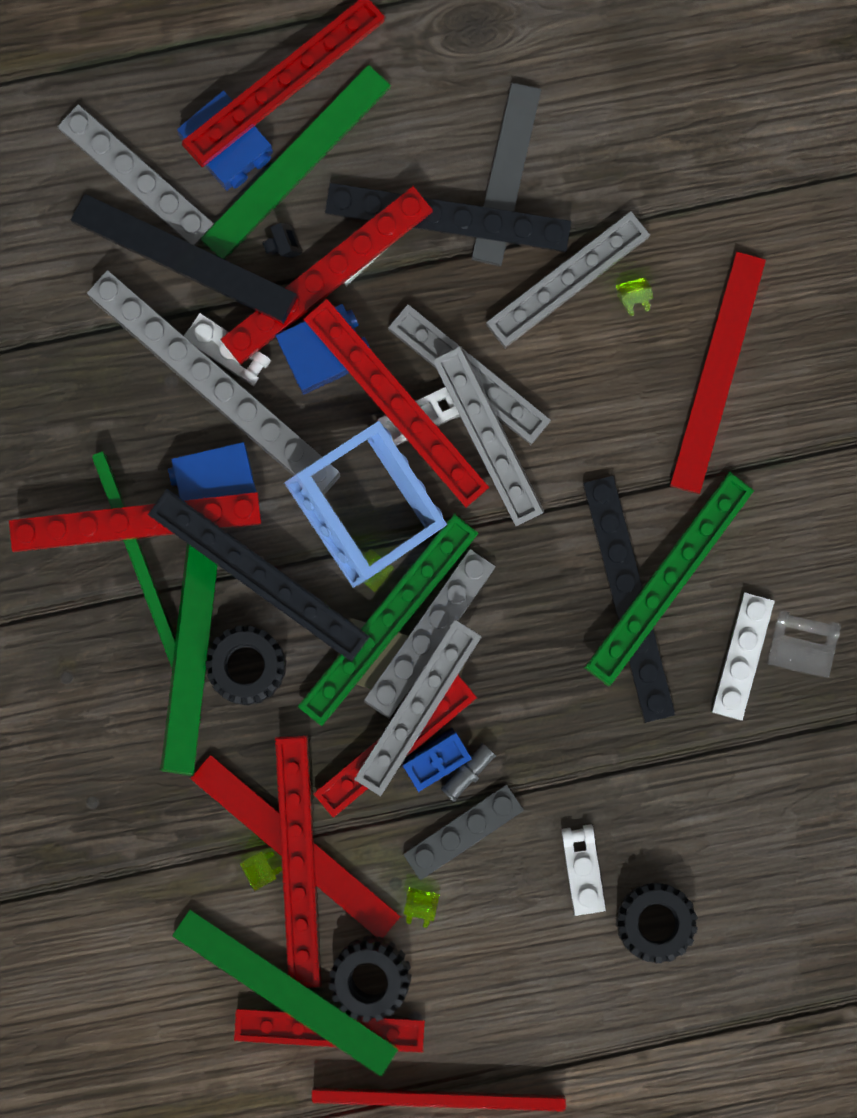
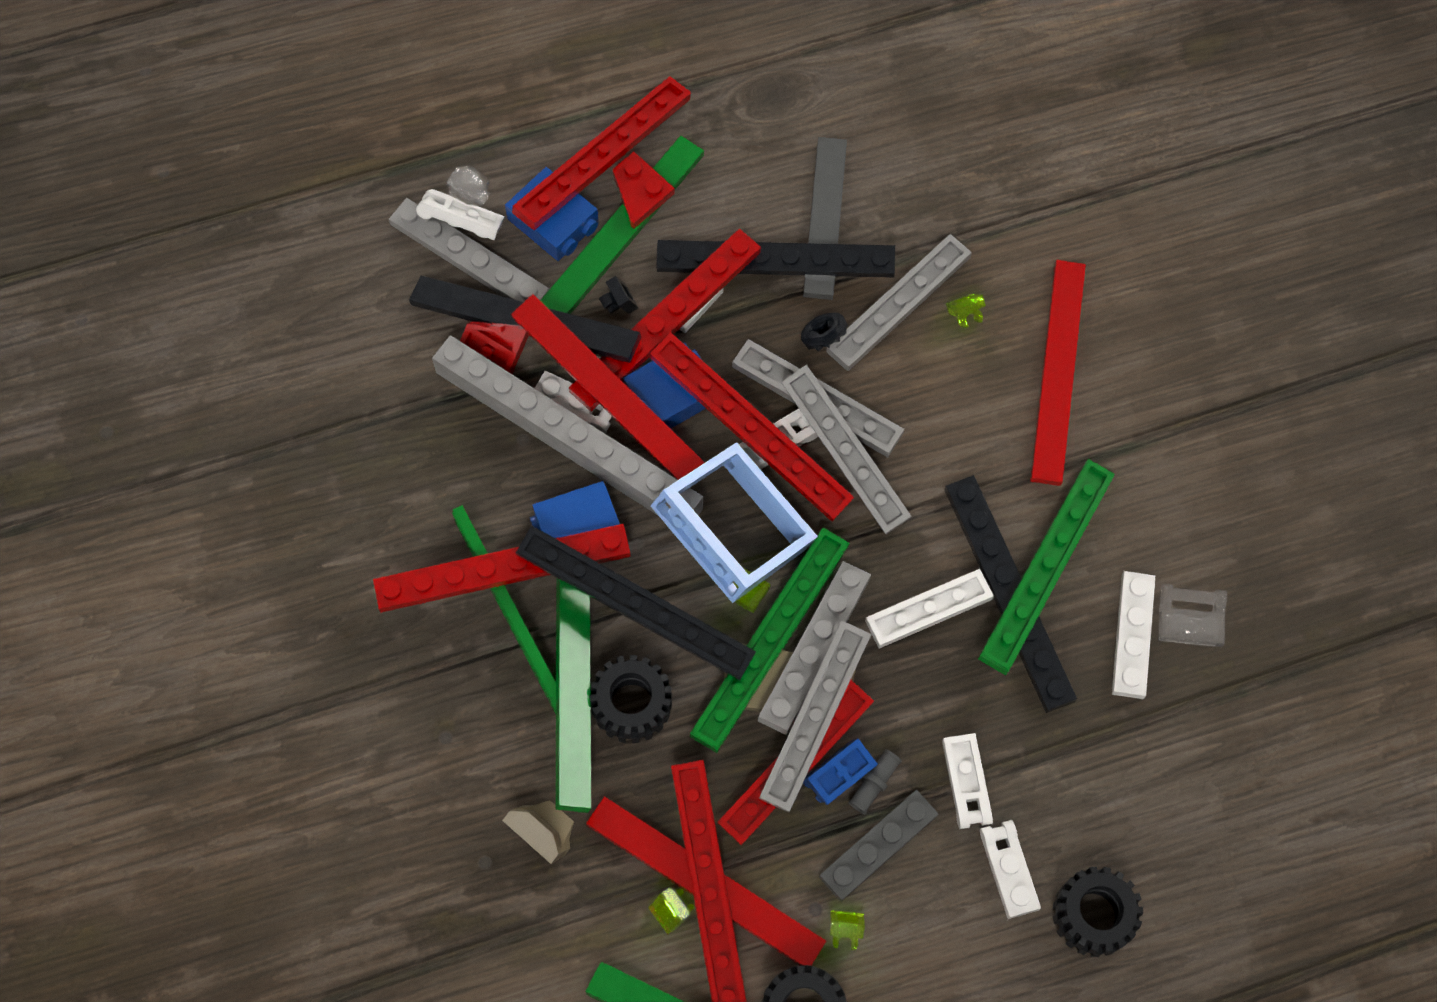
camera: 10 degrees left, 15 degrees down
(130, 131) = (457, 214): none -> white plate
(142, 101) = (468, 186): none -> clear head
(146, 781) = (542, 828): none -> dark tan slope
(152, 281) = (496, 342): none -> red wing
(258, 350) = (606, 388): none -> red tile
(318, 123) = (640, 188): none -> red wing
(481, 297) = (824, 331): none -> black gear
(547, 607) = (929, 608): none -> white plate
(556, 780) = (967, 780): none -> white plate

